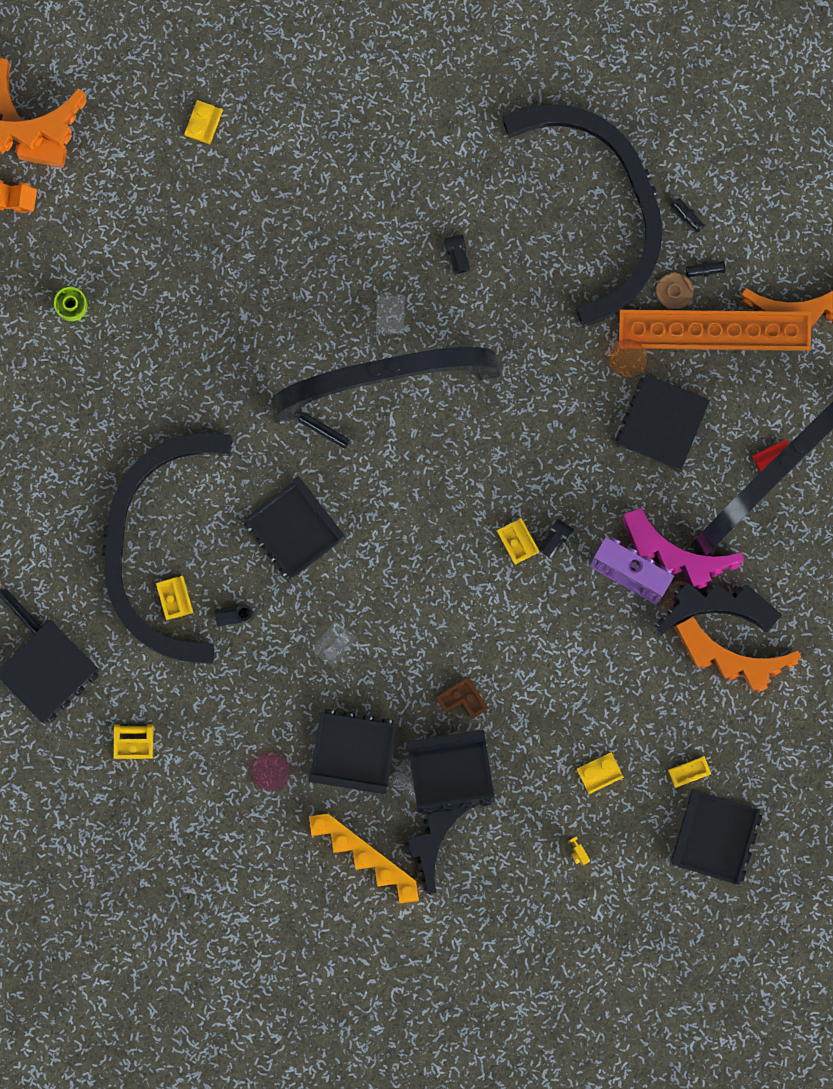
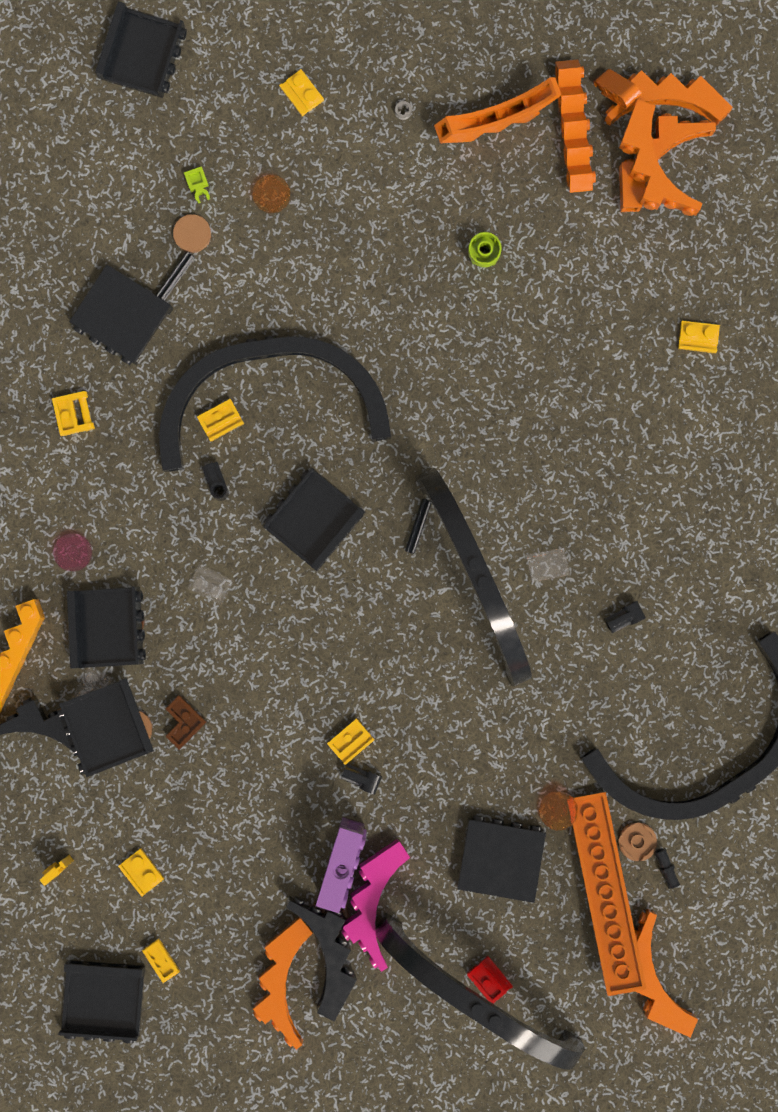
camera: 75 degrees right, 5 degrees up
(688, 215) = (718, 839): black pin -> none

